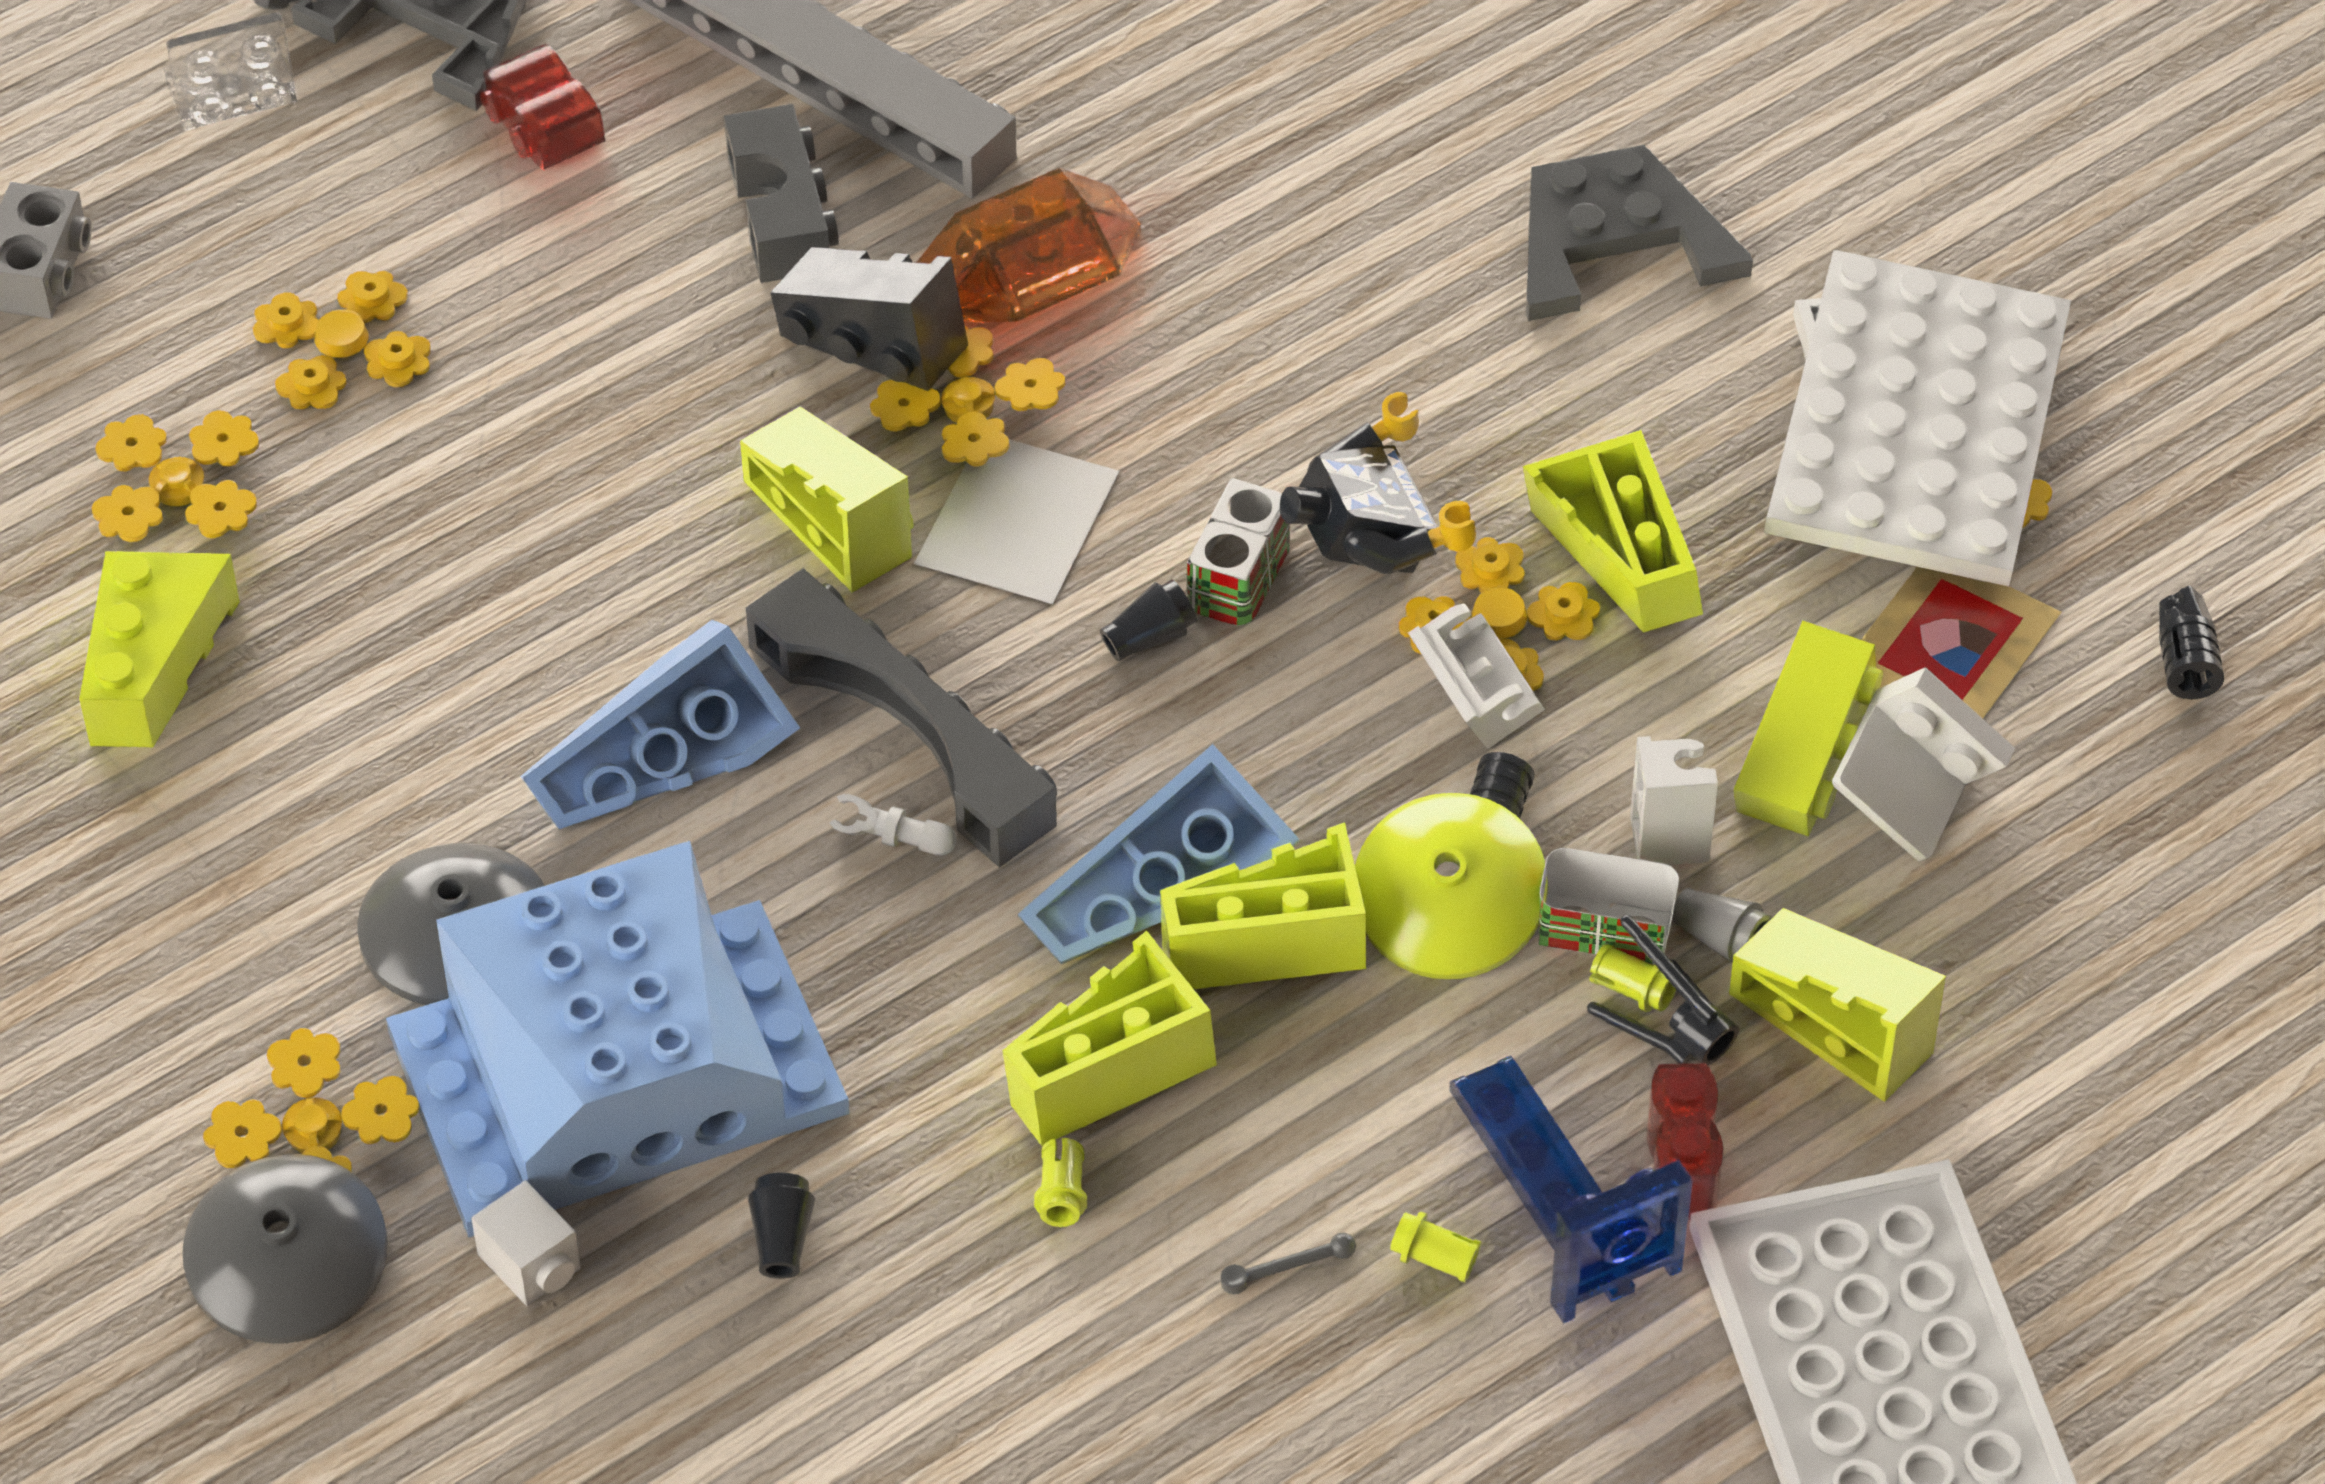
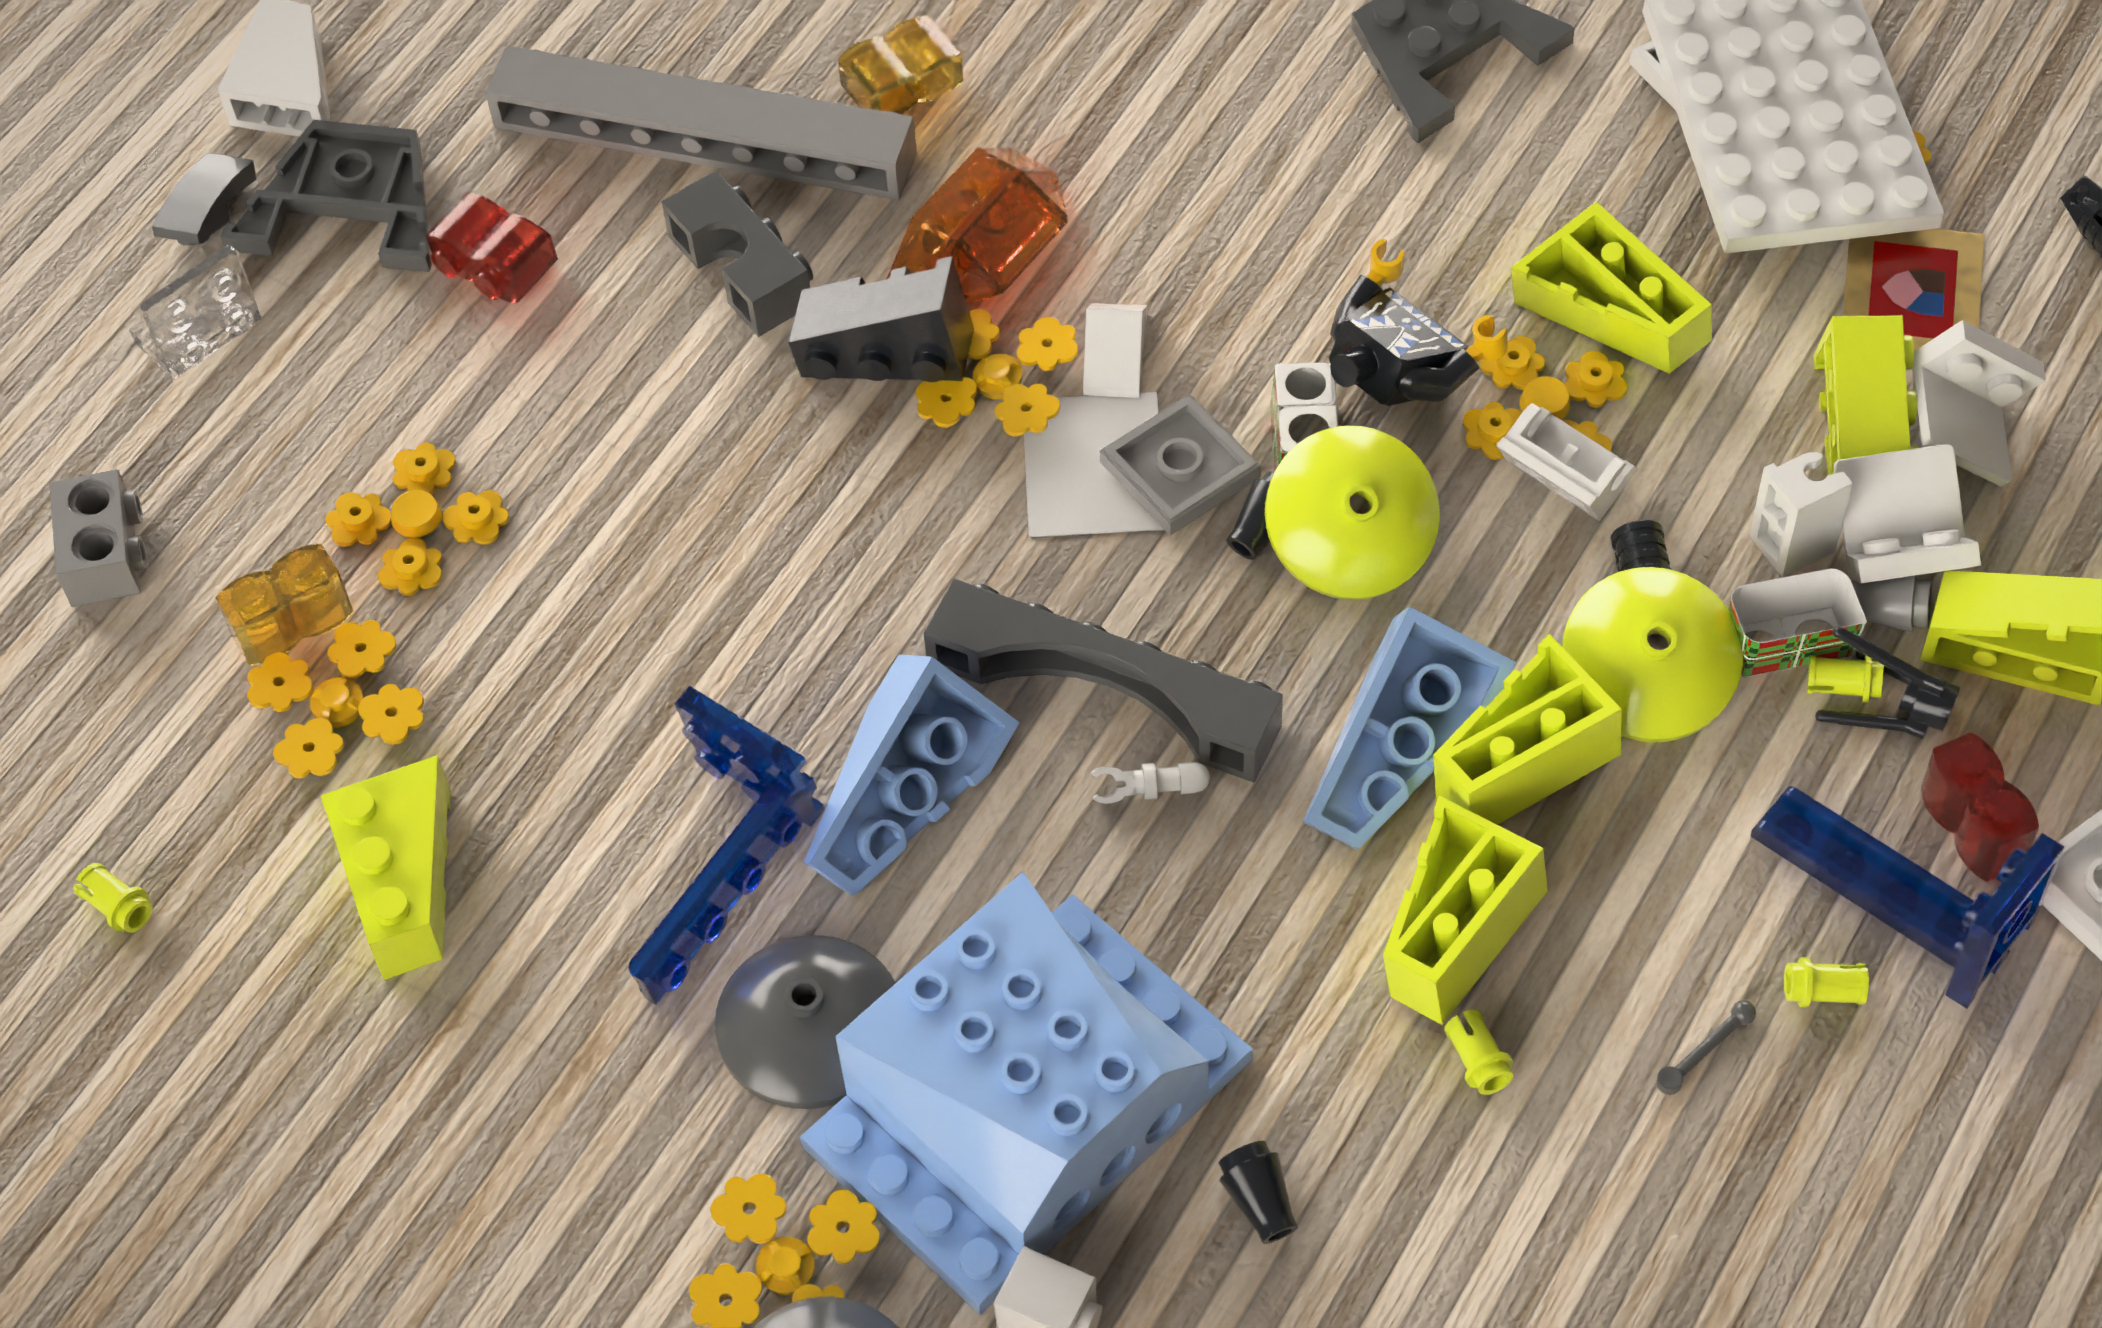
camera: 20 degrees left, 5 degrees up
(171, 371) = (288, 602): none -> clear yellow brick
(461, 750) = (781, 806): none -> clear blue bracket
(831, 495) = (935, 502): neon yellow wedge -> none
(1040, 68) = (901, 68): none -> clear yellow brick
(1095, 411) = (1114, 349): none -> white slope
(1095, 544) = (1180, 464): none -> light grey plate
(1240, 686) = (1329, 542): none -> neon yellow dish
(1776, 839) = (1904, 515): none -> white bracket

